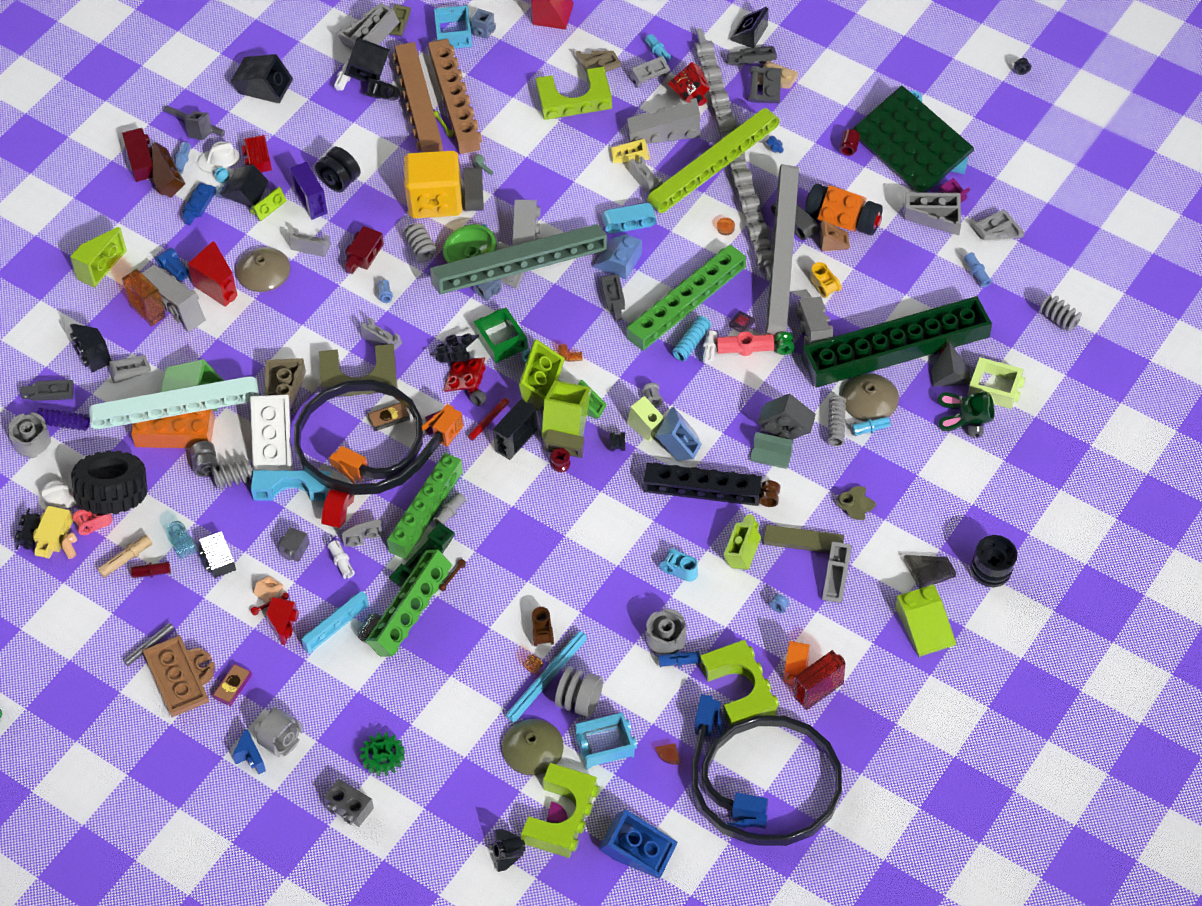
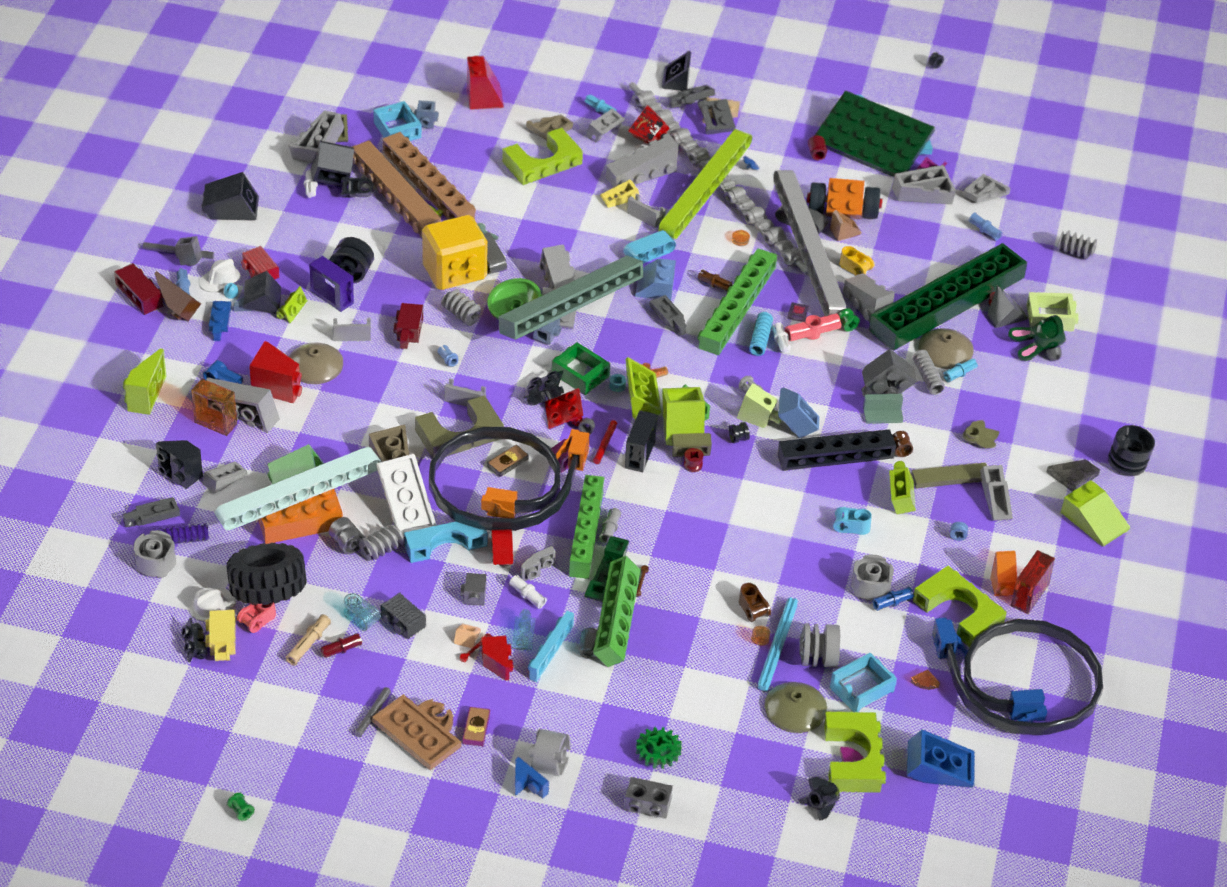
camera: 25 degrees left, 10 degrees down
(67, 545) = (243, 641): light nougat arm -> none
(318, 600) = (523, 631): none -> clear light blue hinge
(675, 268) = (714, 280): none -> reddish brown axle

